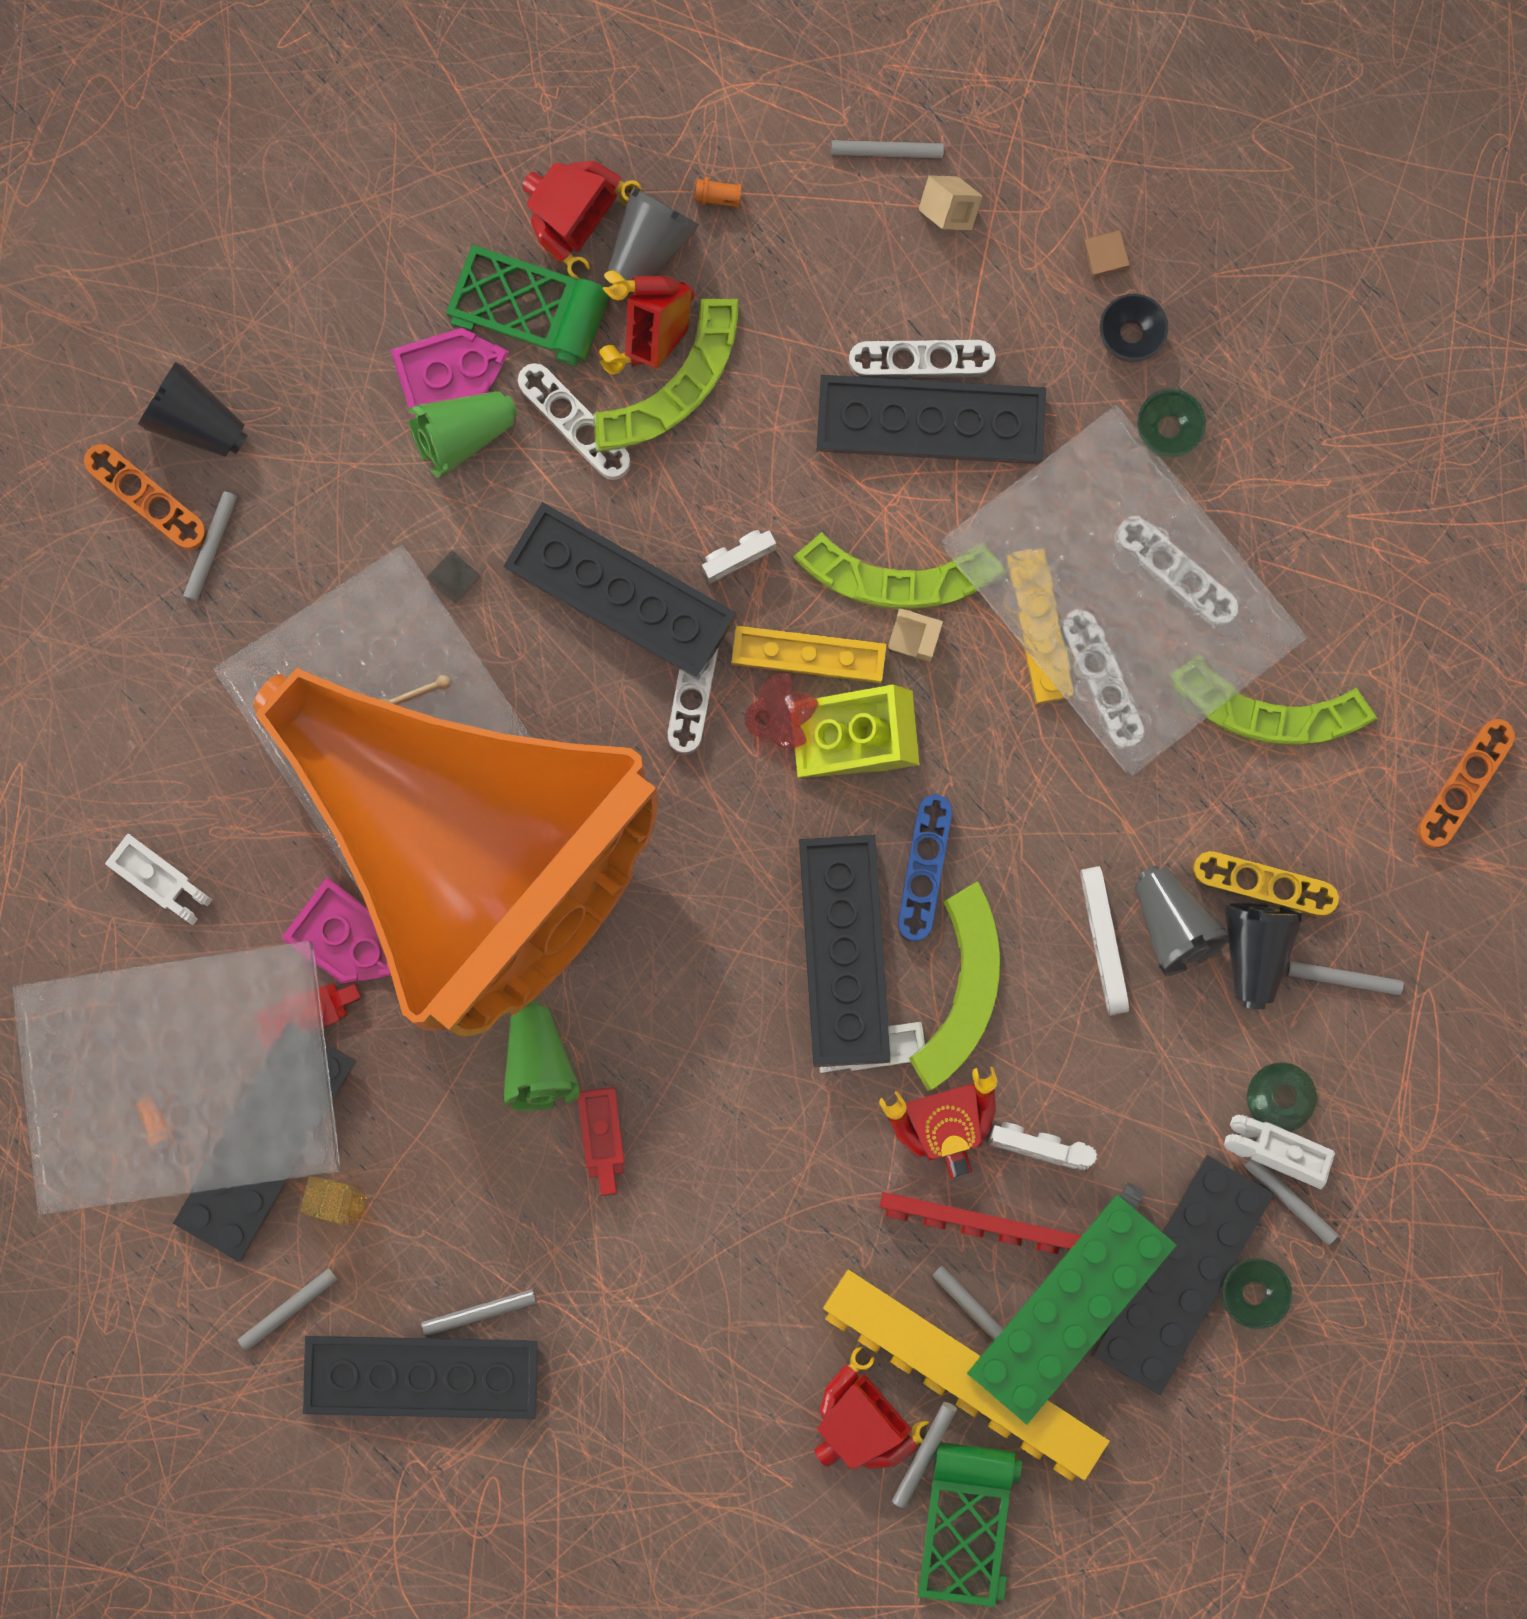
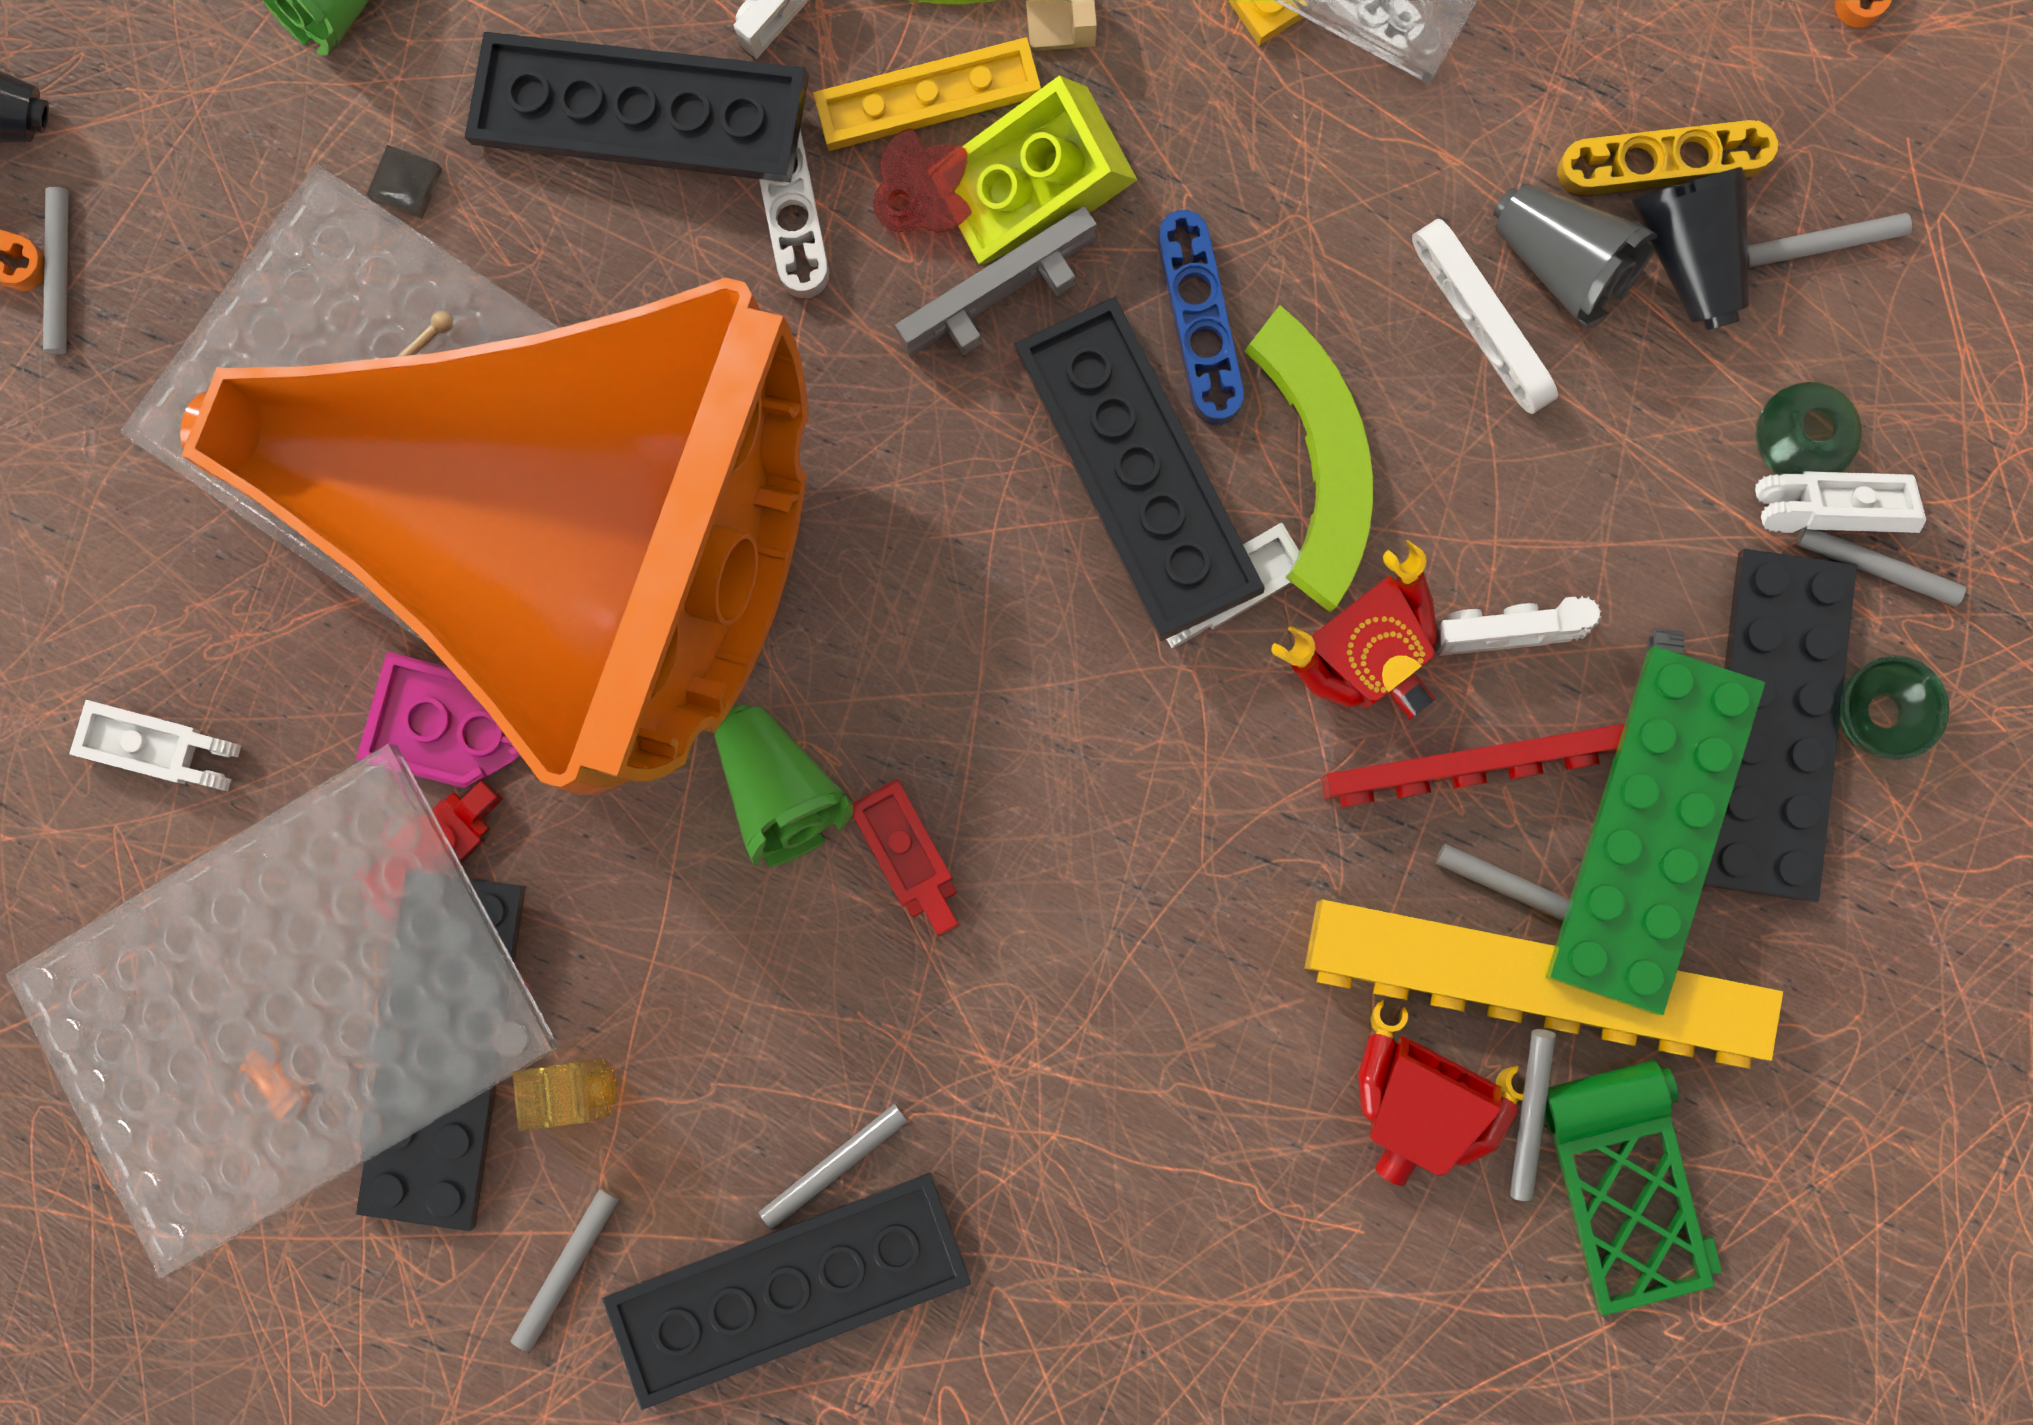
camera: 15 degrees left, 0 degrees up
(838, 789) = (1039, 256): none -> light grey hinge

